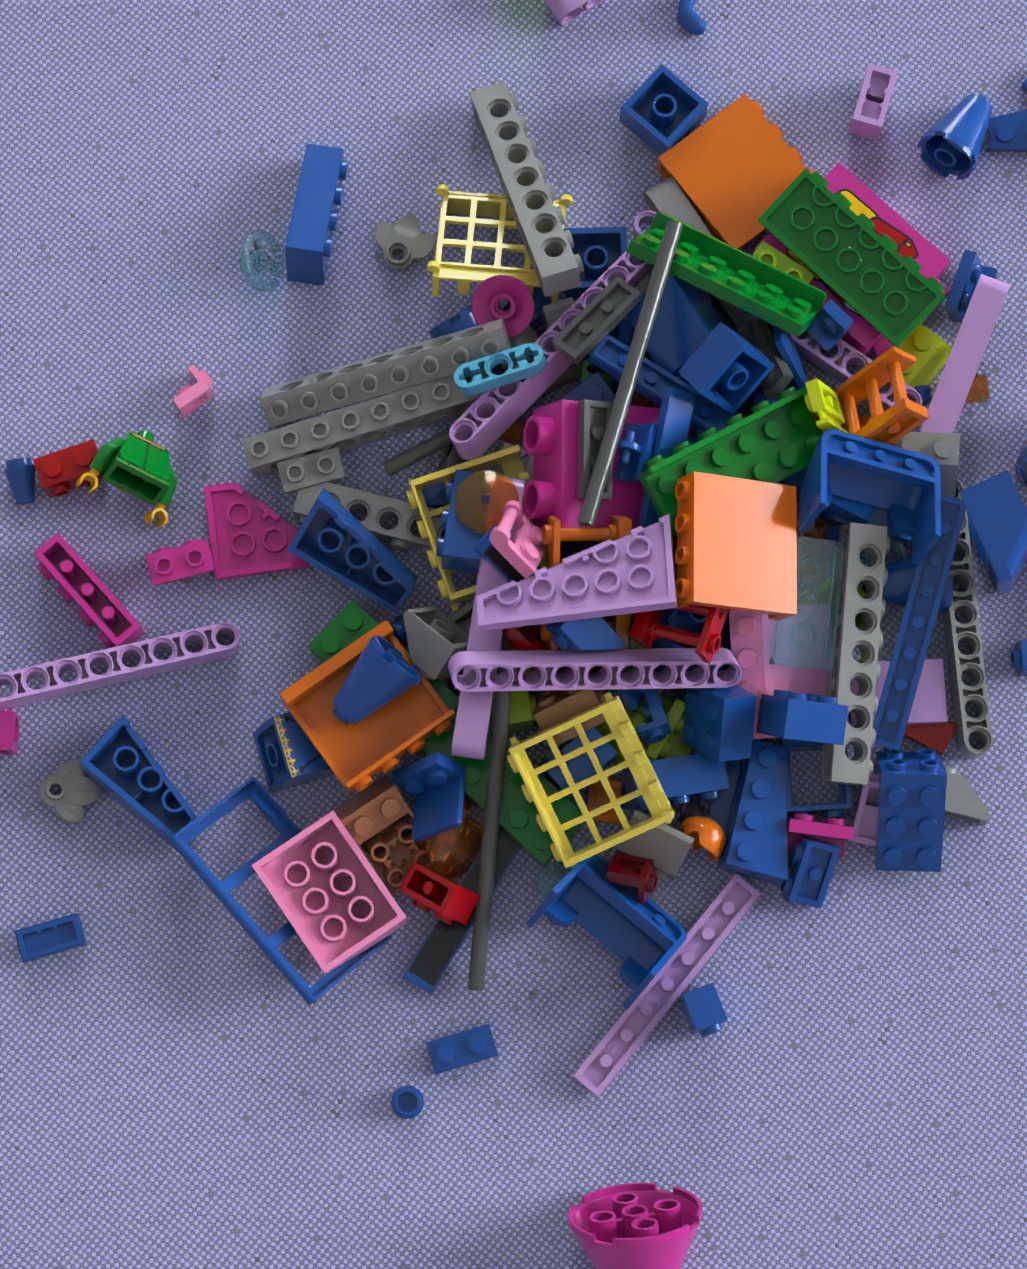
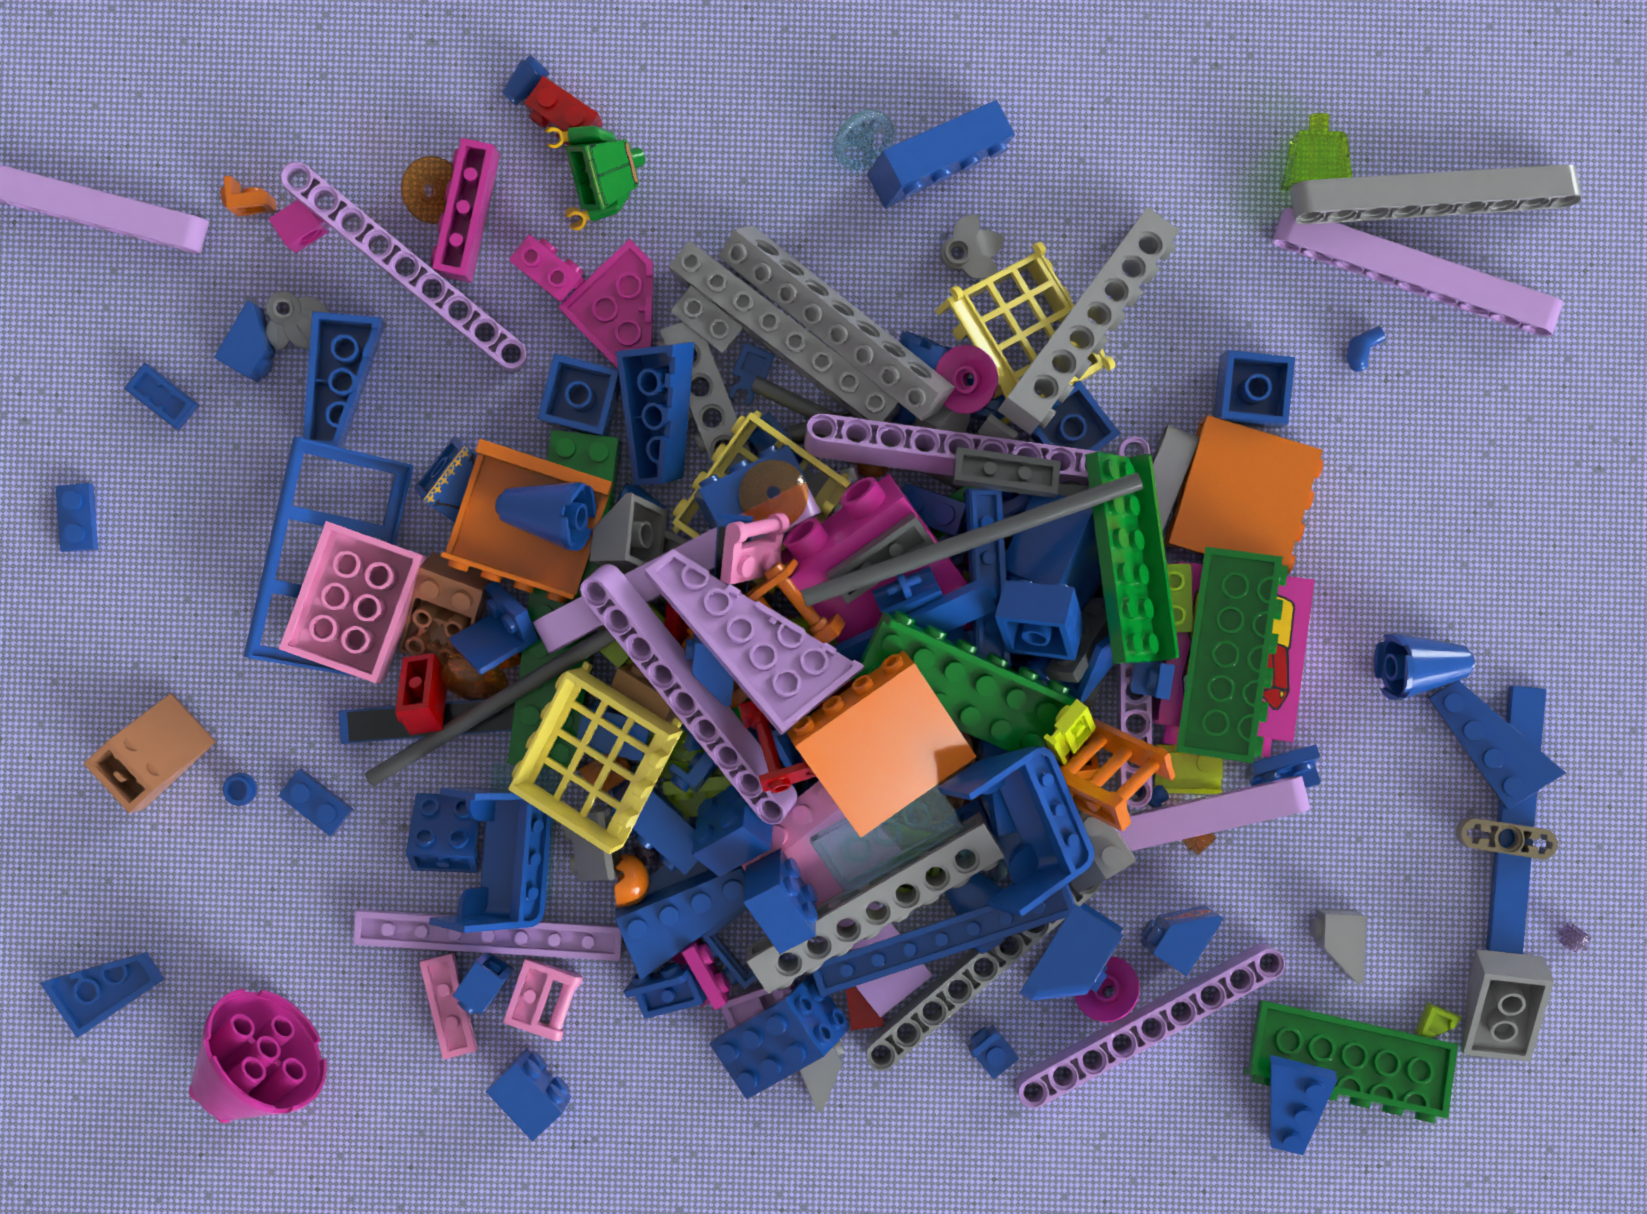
camera: 55 degrees right, 10 degrees up
(44, 599) = (423, 171): none -> clear orange dish
(64, 839) = (247, 345): none -> blue slope
(94, 1078) = (76, 517): none -> blue plate
(193, 396) = (701, 170): bright pink bracket -> none
(297, 607) = (580, 396): none -> blue brick
(327, 1148) = (150, 754): none -> nougat slope
(370, 468) = (750, 363): none -> blue plate
(506, 357) = (888, 396): medium azure beam -> none
(562, 962) = (442, 835): none -> blue bracket
(633, 872) = (554, 844): dark red bracket -> none
(701, 1057) = (450, 1020): none -> bright pink plate
(740, 985) = (532, 994): none -> bright pink plate
(817, 1036) = (530, 1094): none -> blue brick
(873, 101) = (1398, 567): lavender brick -> none

